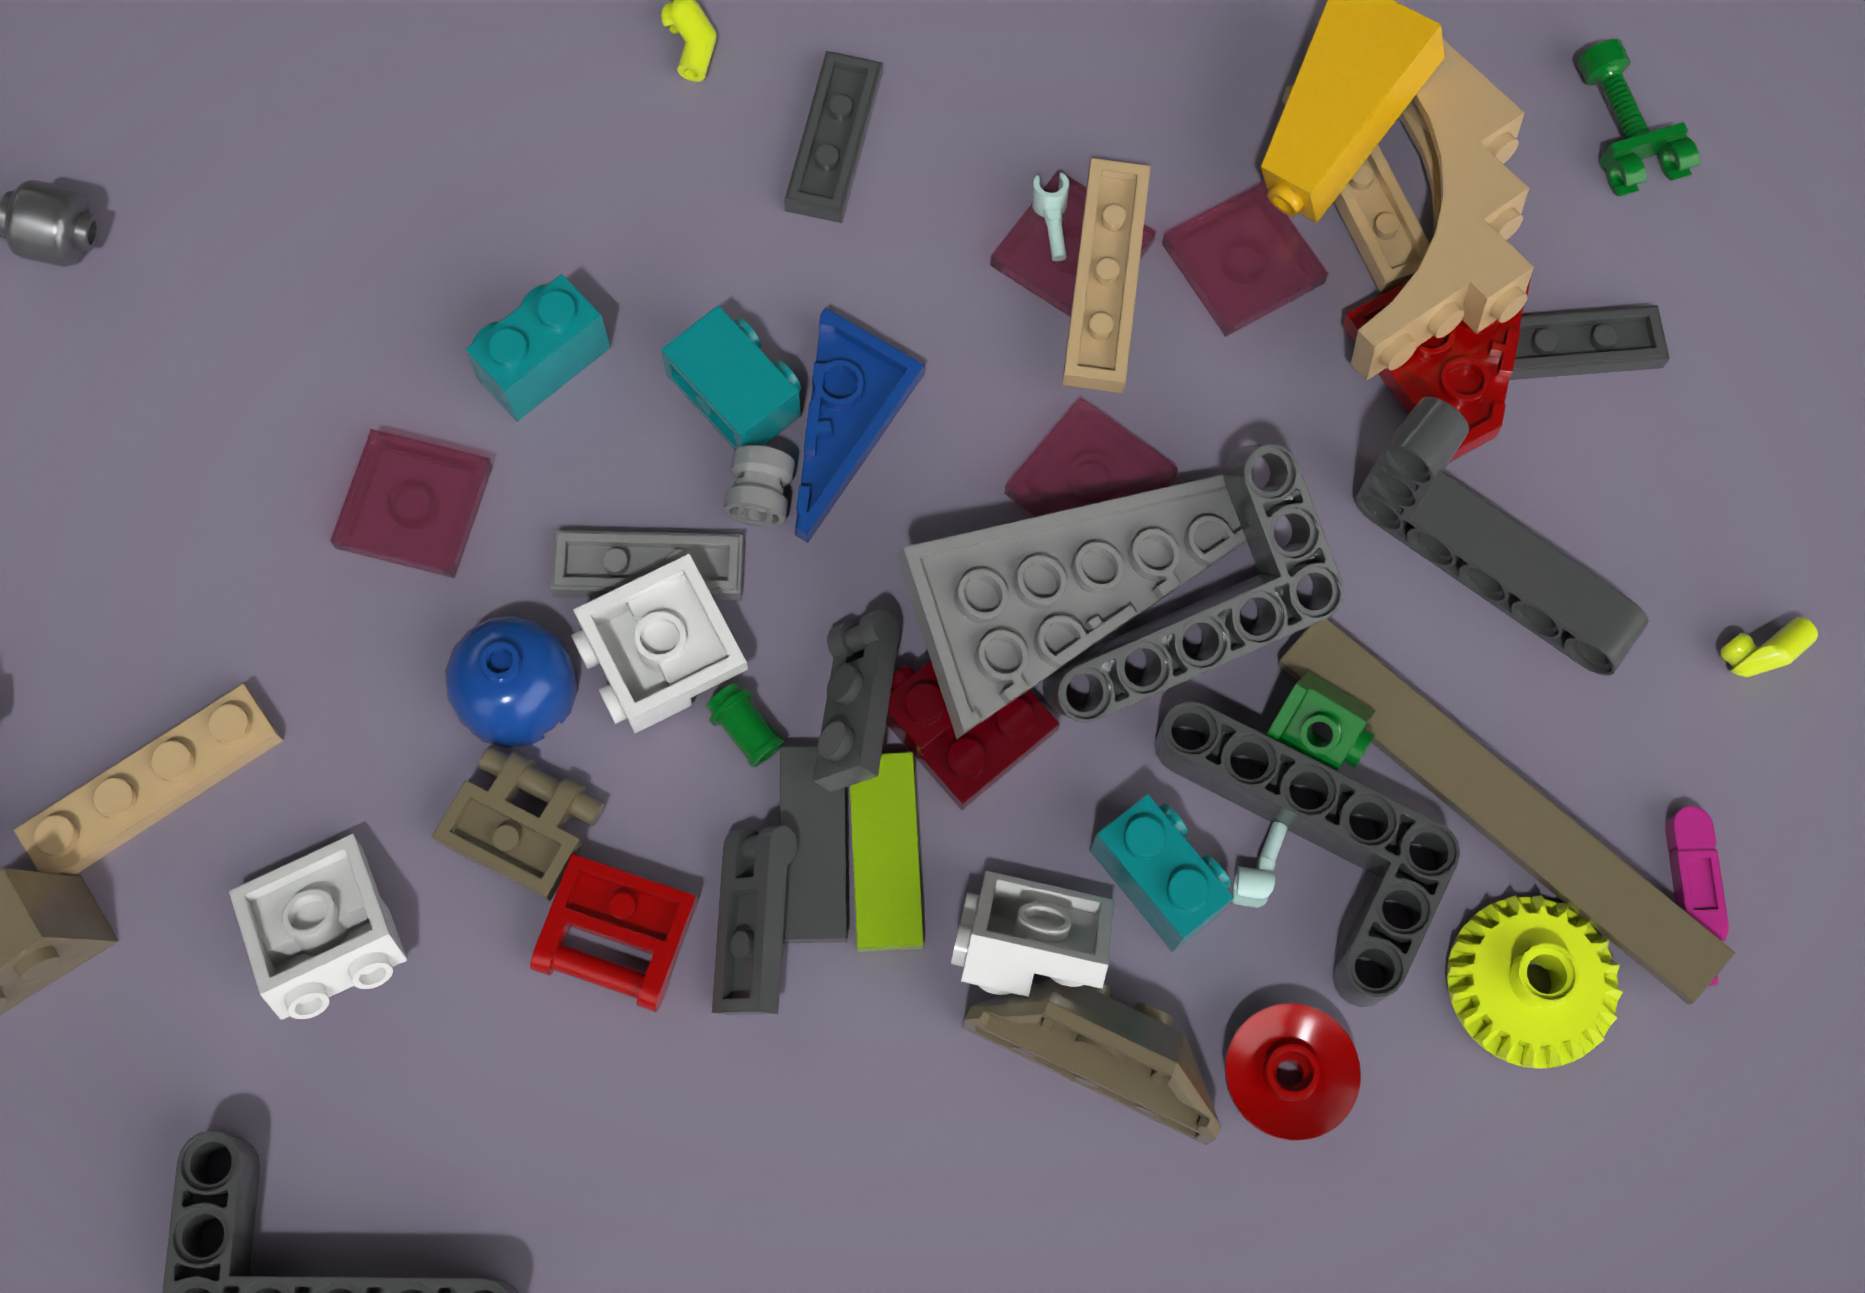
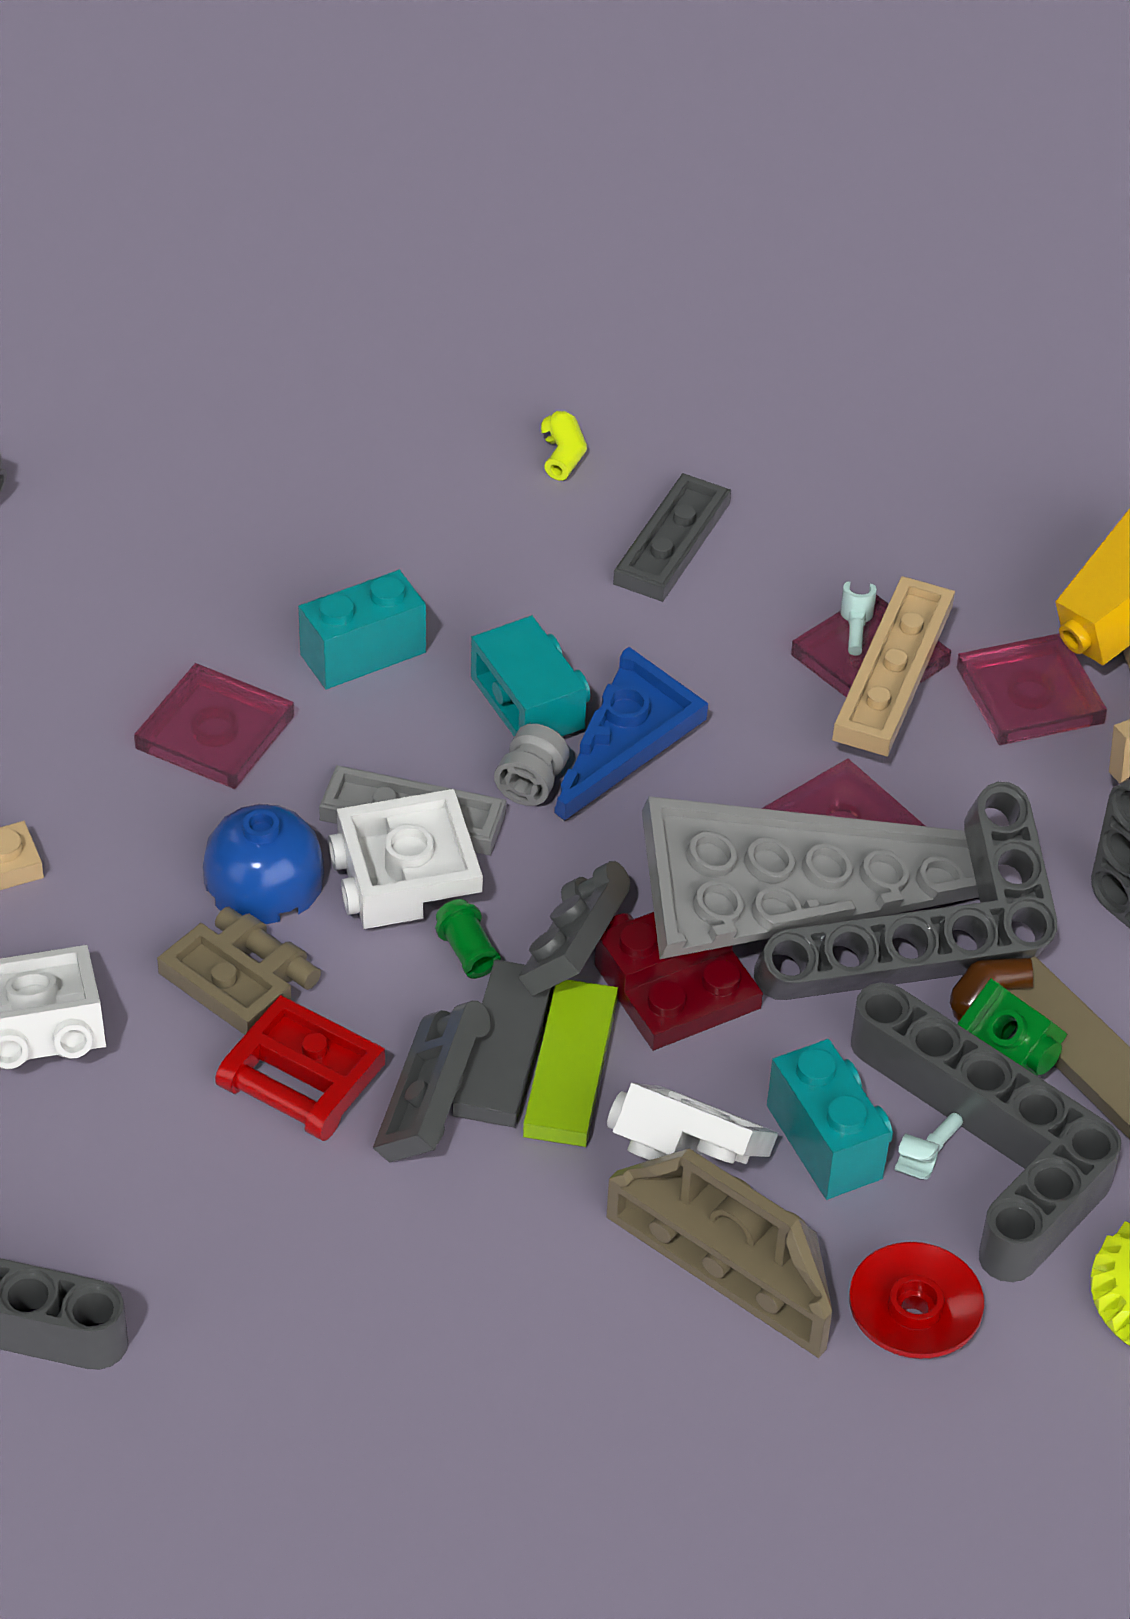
camera: 15 degrees right, 25 degrees down
(1280, 661) = (1009, 973): none -> reddish brown arm

